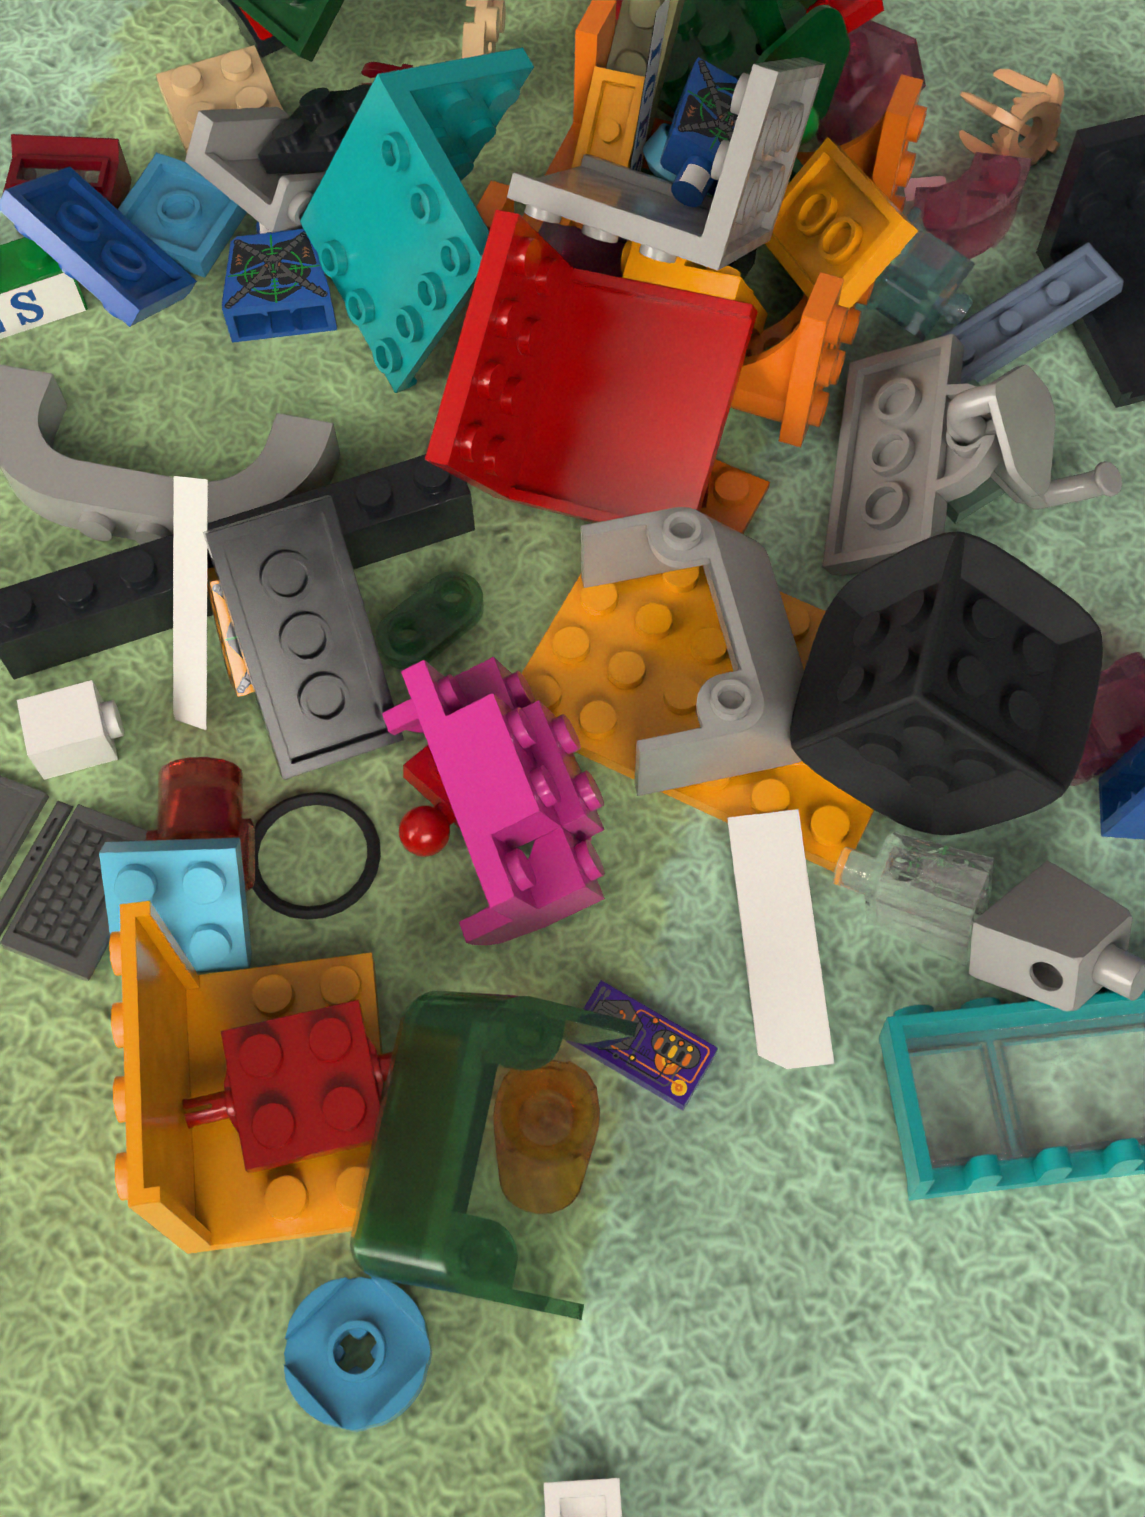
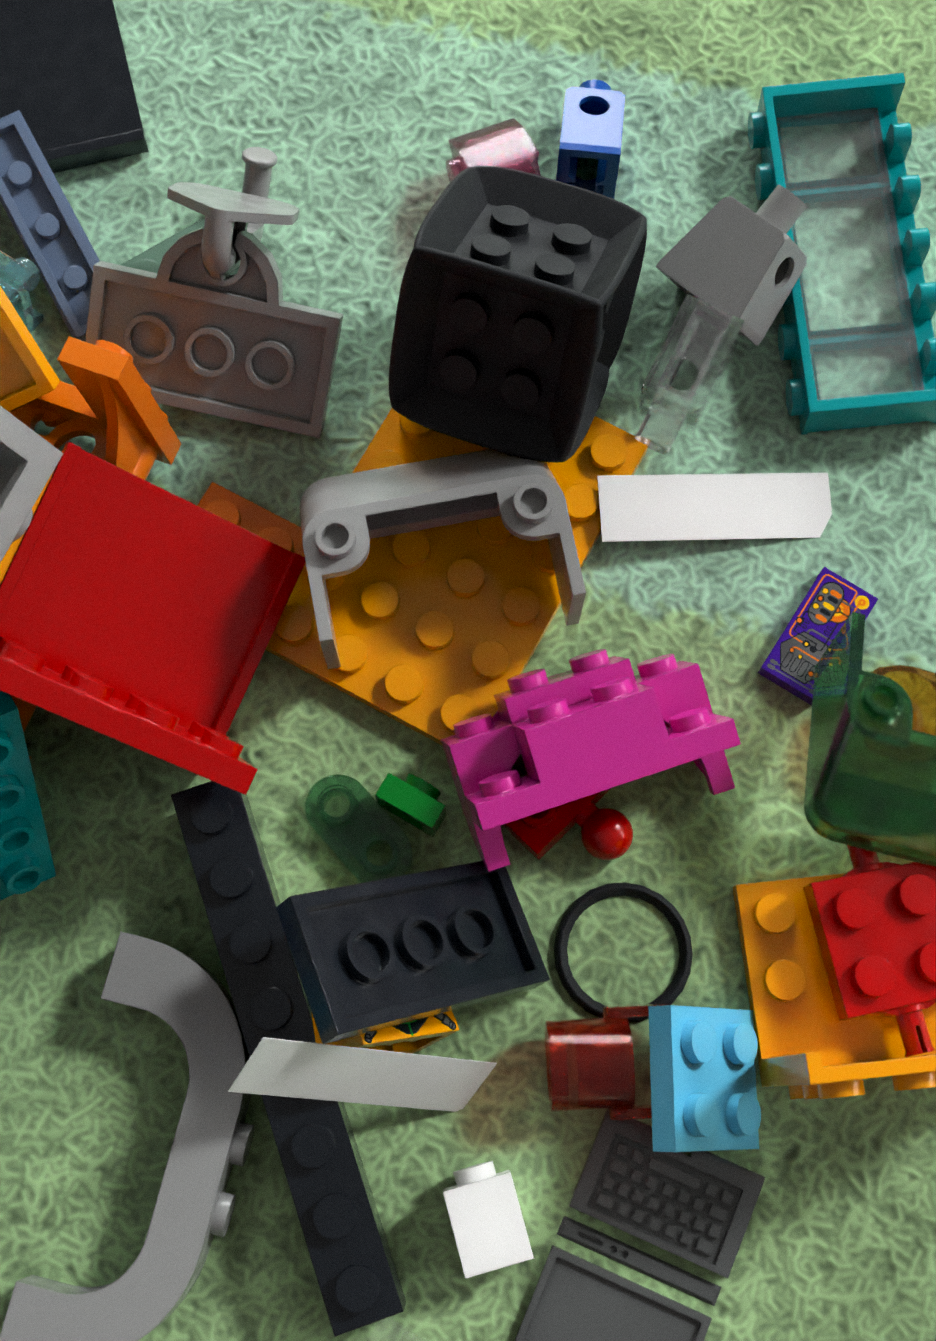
camera: 90 degrees left, 10 degrees up
(455, 647) = (412, 801): none -> green plate

